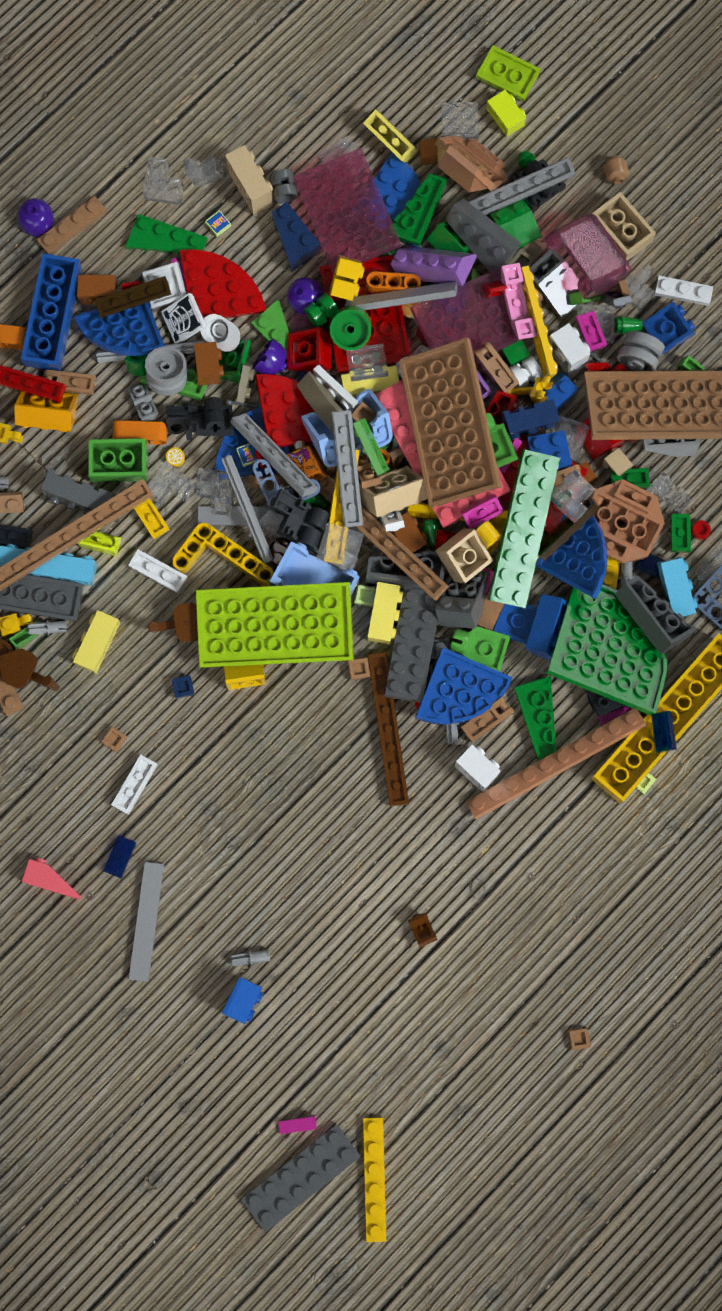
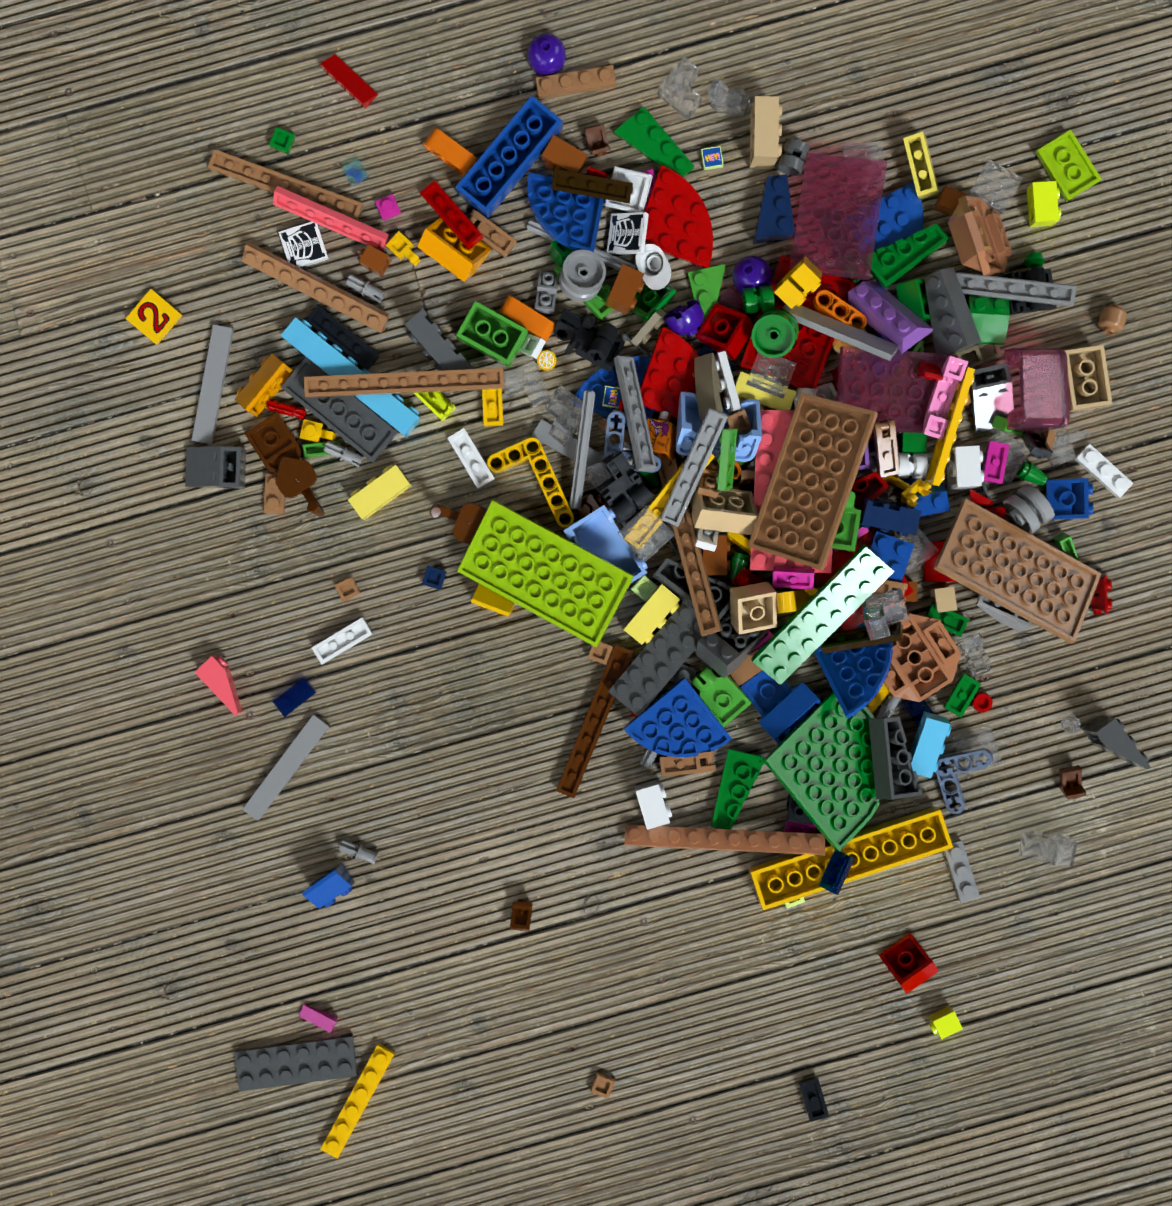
camera: 30 degrees right, 10 degrees up
(115, 260) = (597, 140): none -> reddish brown bracket
(157, 451) = (532, 346): none -> plate

